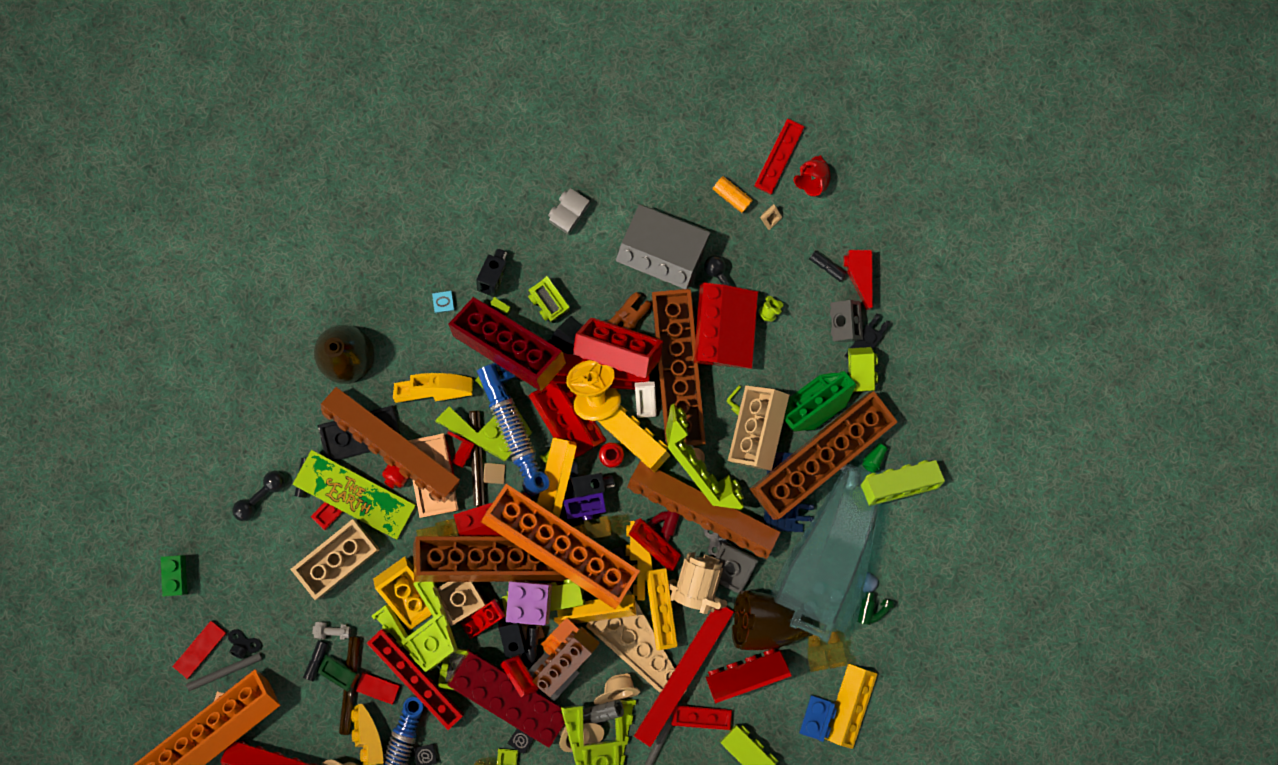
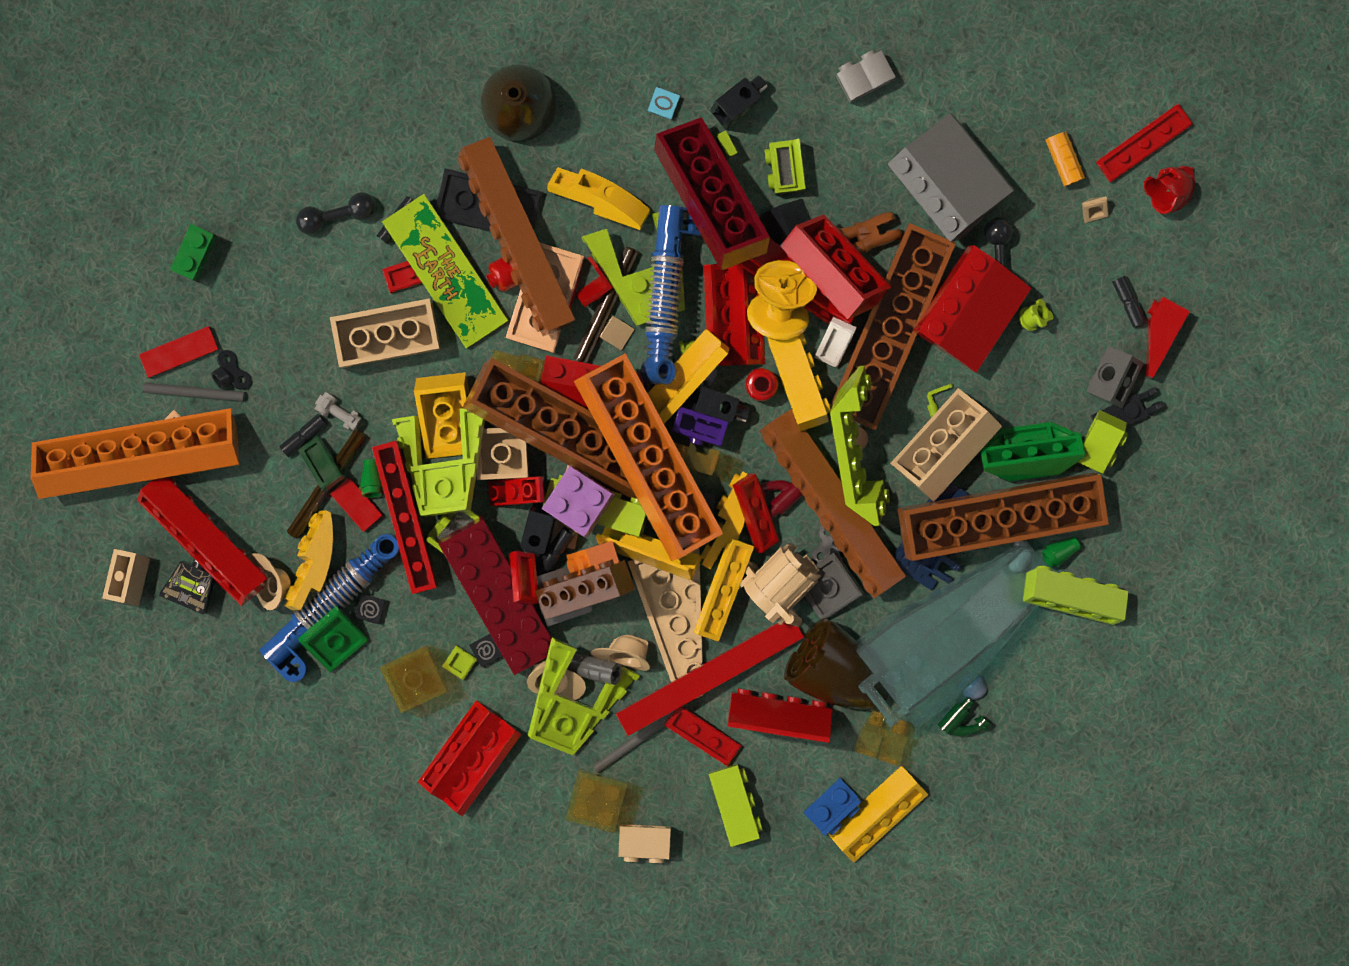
camera: 30 degrees right, 5 degrees up
(379, 668) = (370, 480): none -> green cone

